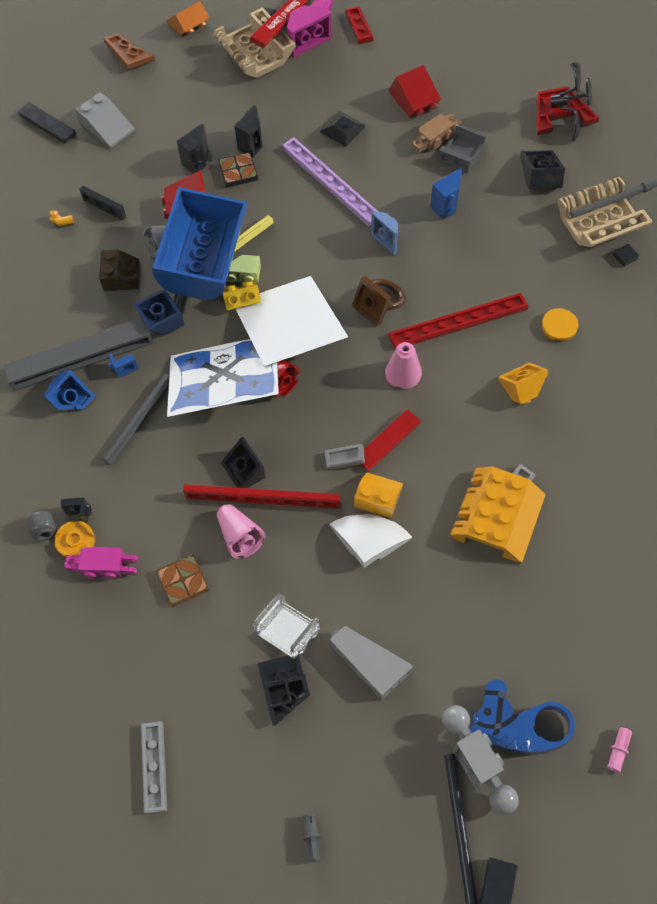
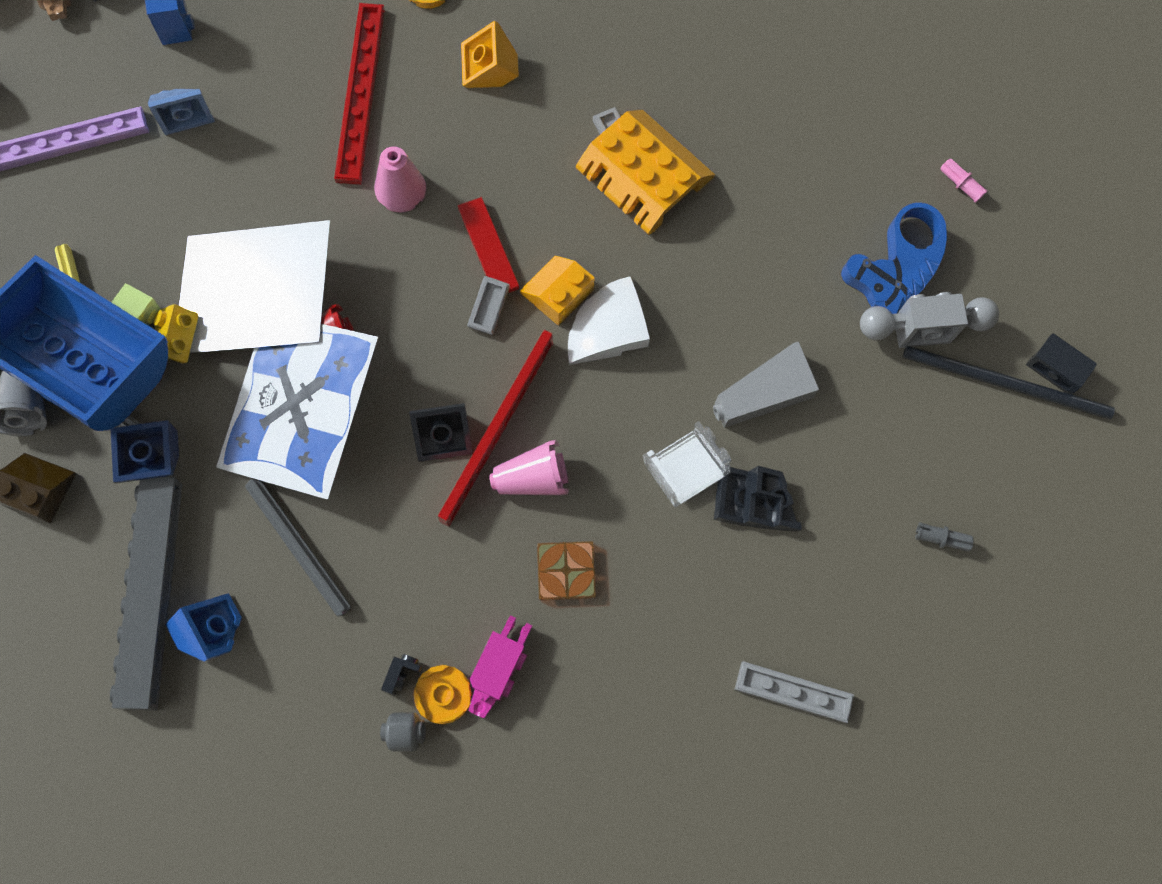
camera: 75 degrees left, 10 degrees up
(123, 366) = (203, 535): blue bracket -> none
(373, 301) = (280, 171): reddish brown tile -> none

